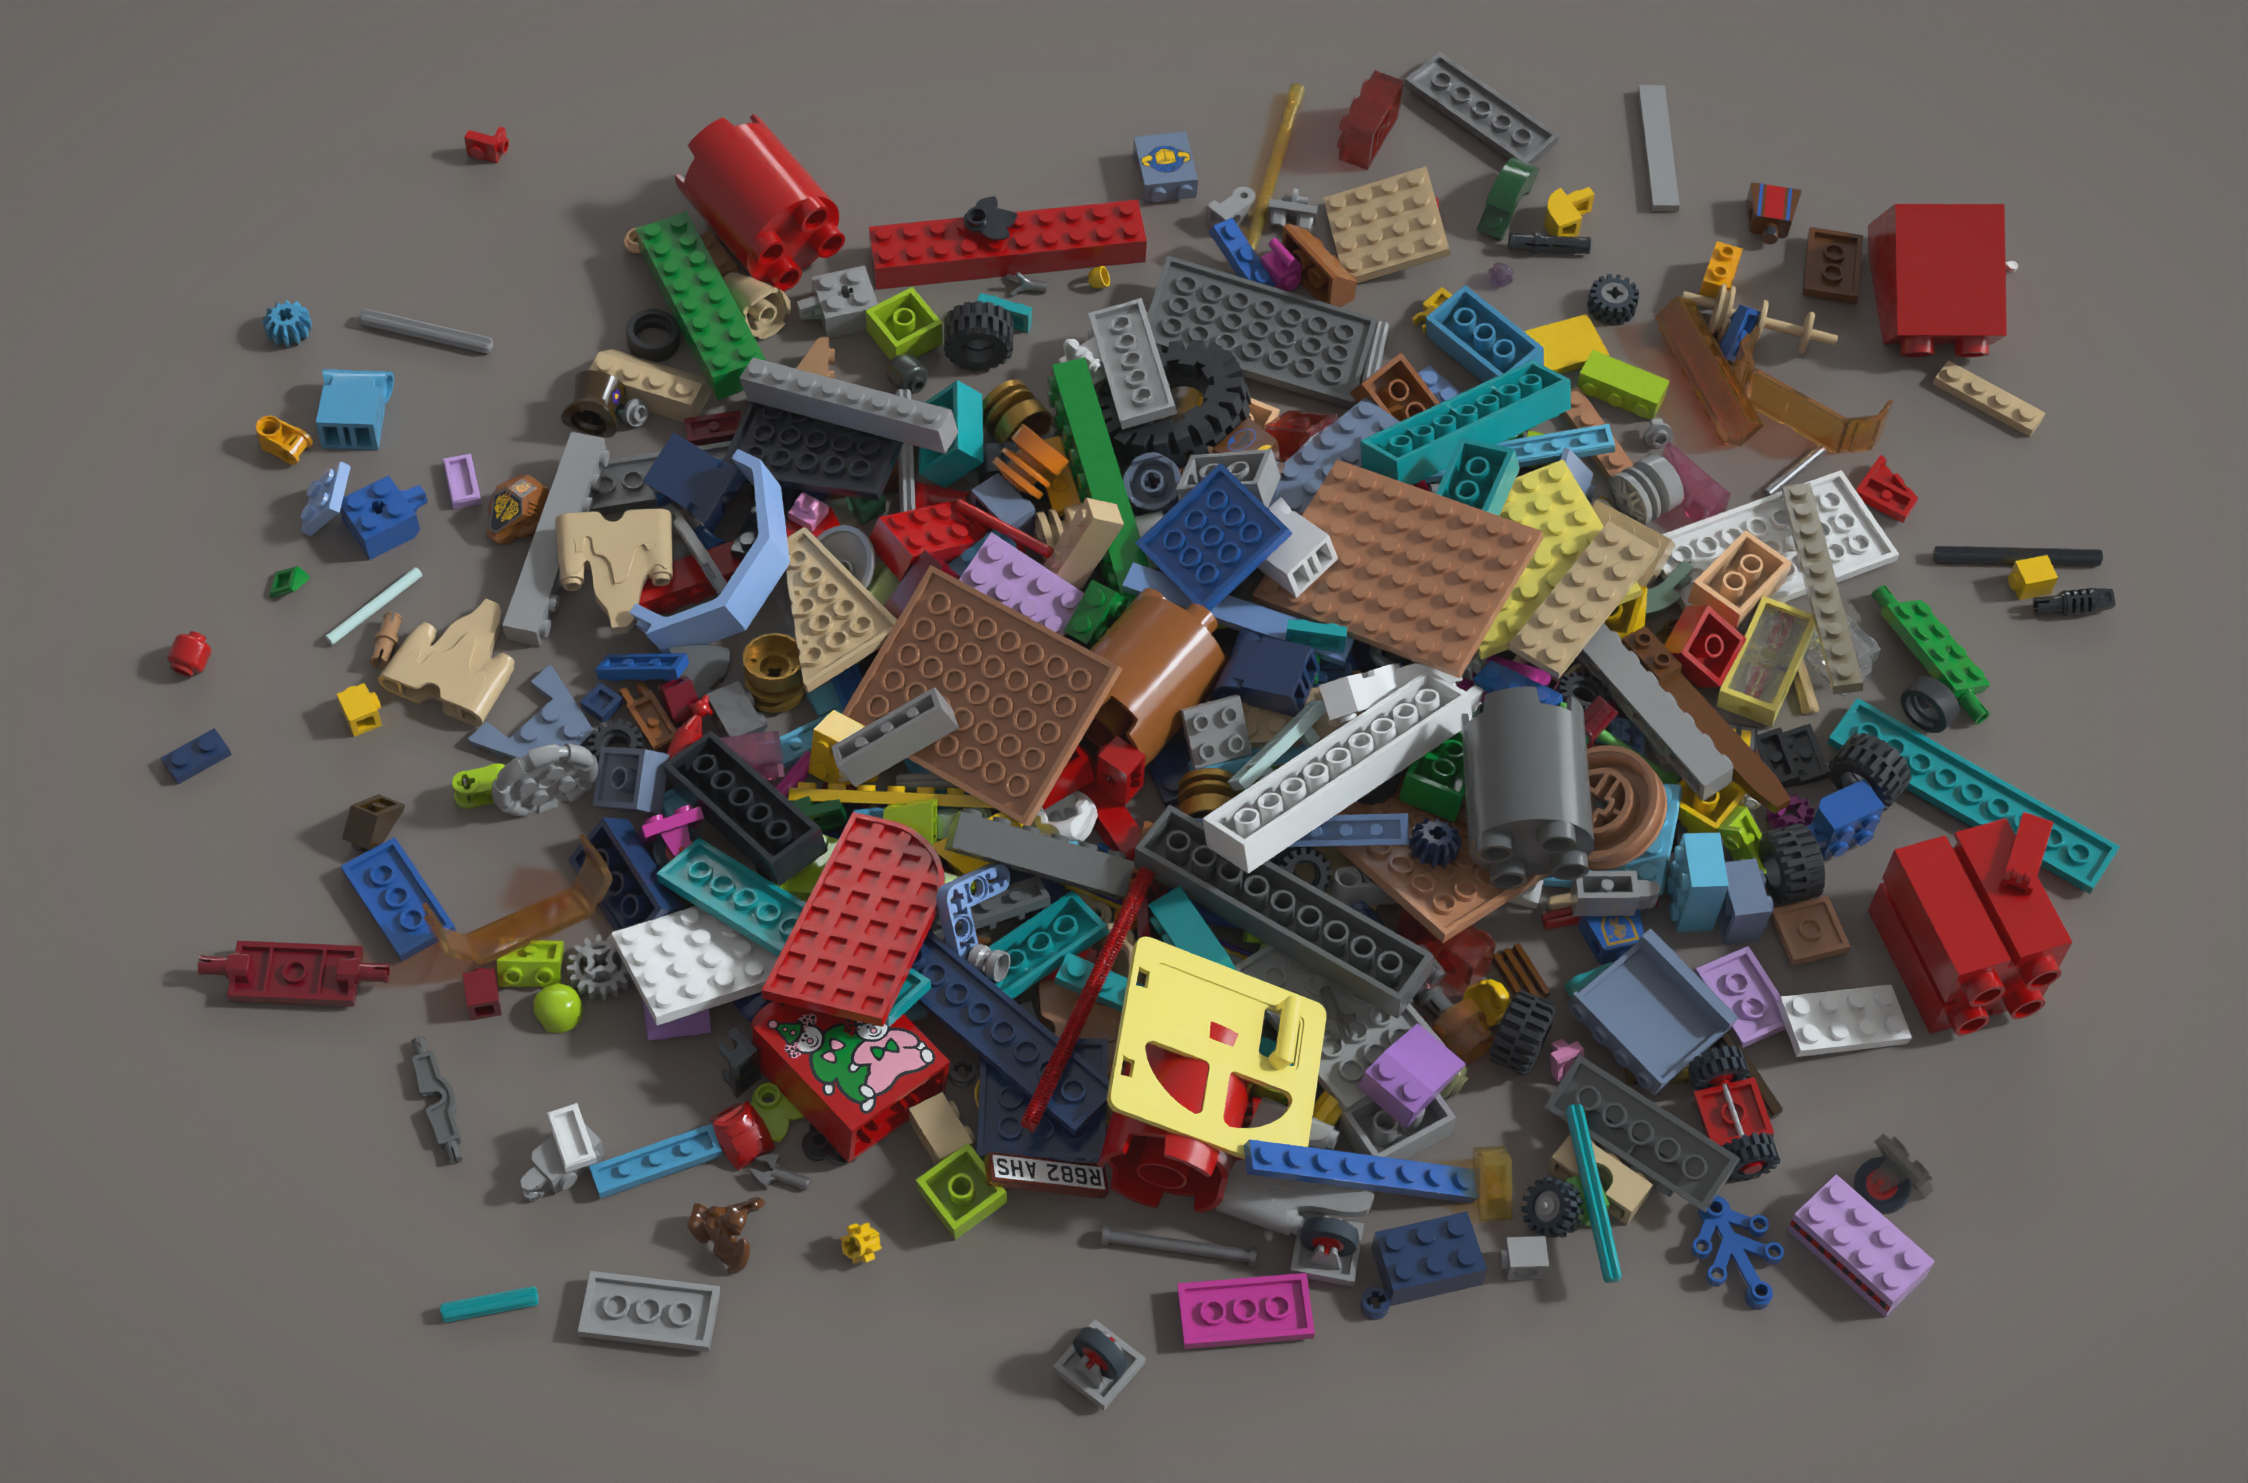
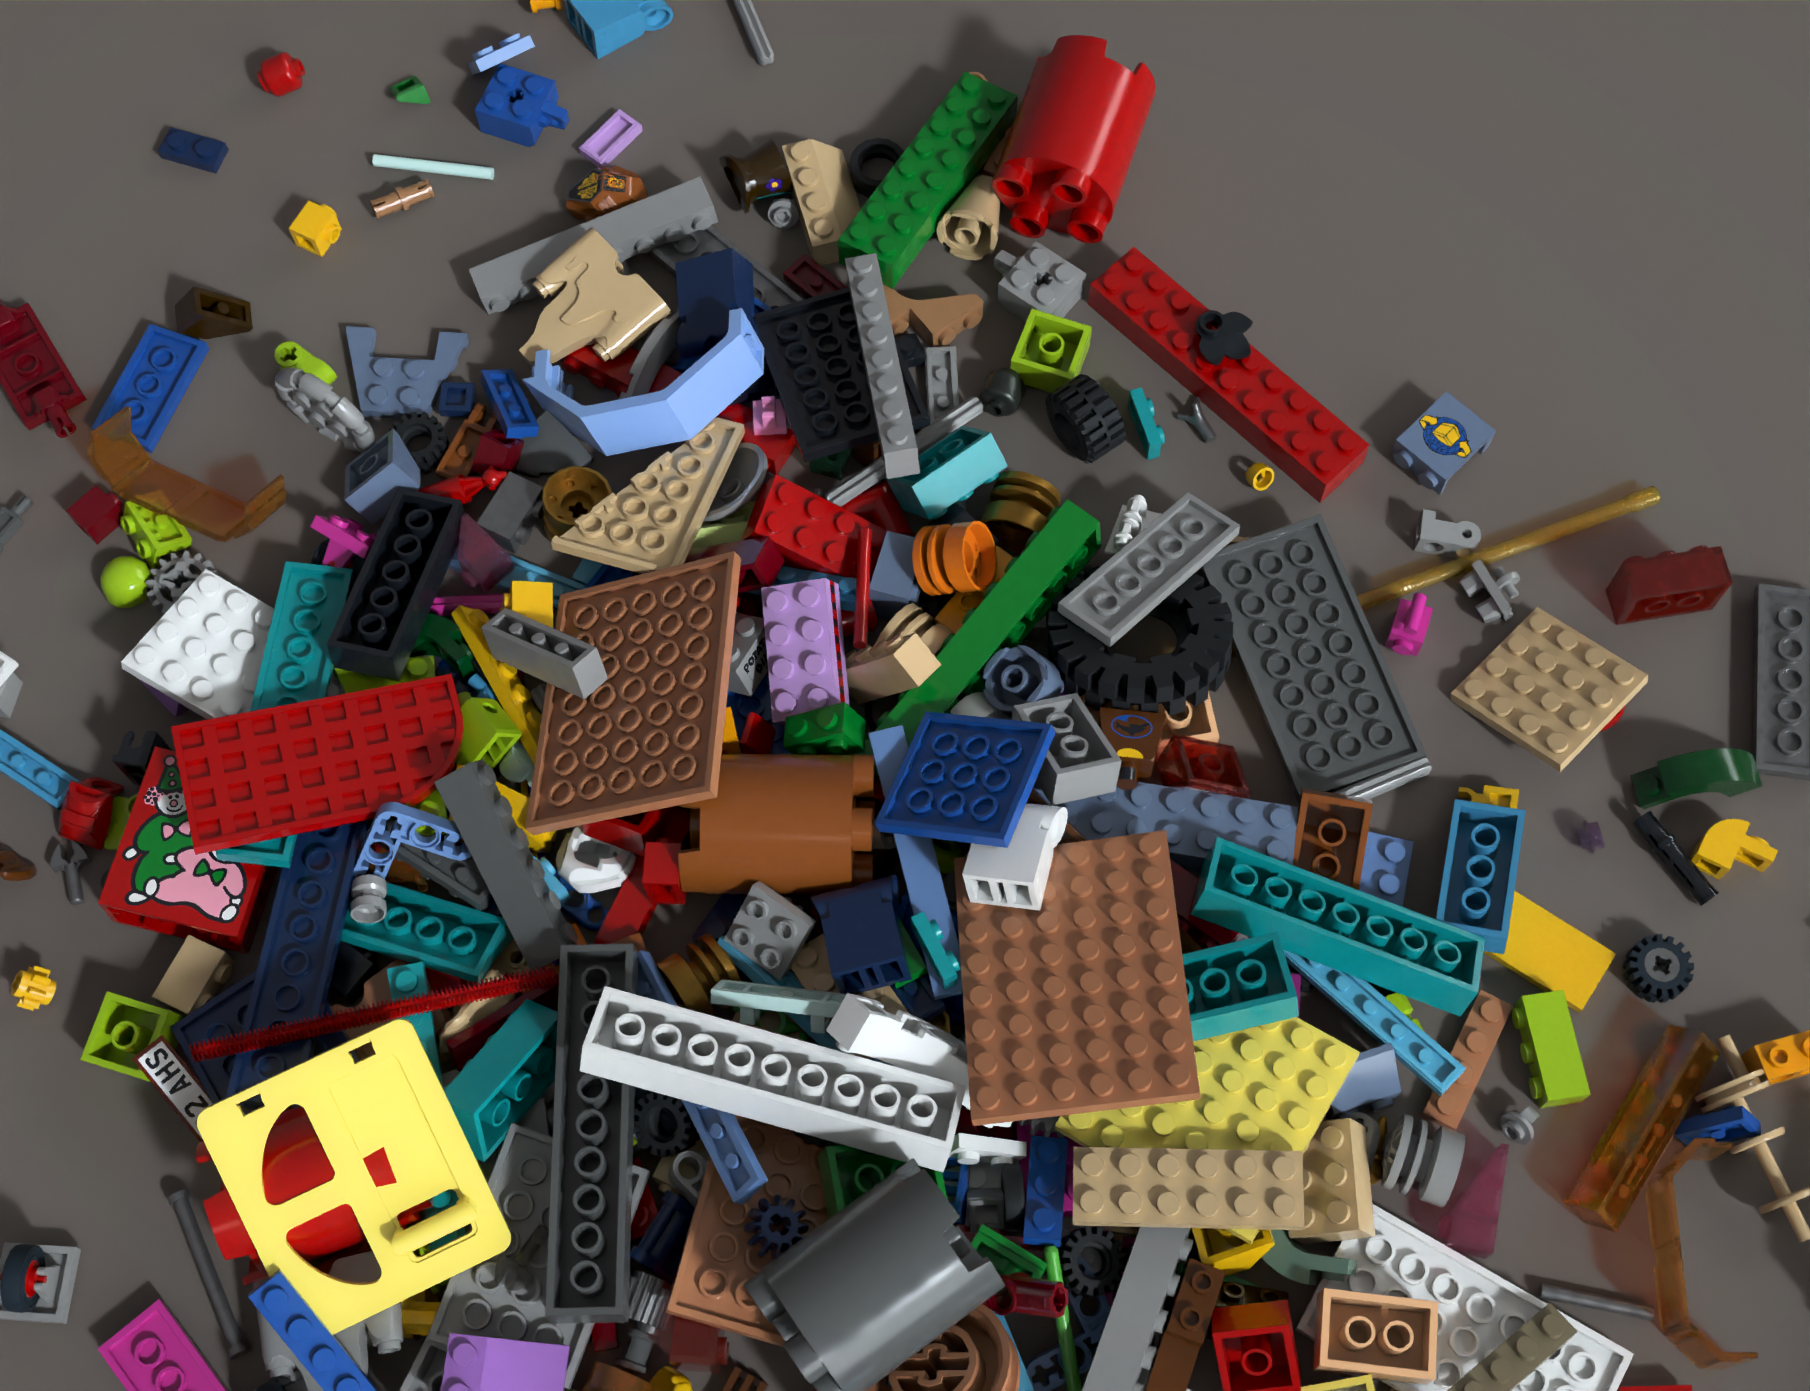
camera: 60 degrees right, 10 degrees up
(455, 668) = (412, 264): tan rock -> none
(635, 891) = (285, 538): dark blue slope -> none
(1239, 252) = (1388, 580): blue plate -> none
(1320, 270) = (1440, 659): dark orange slope -> none

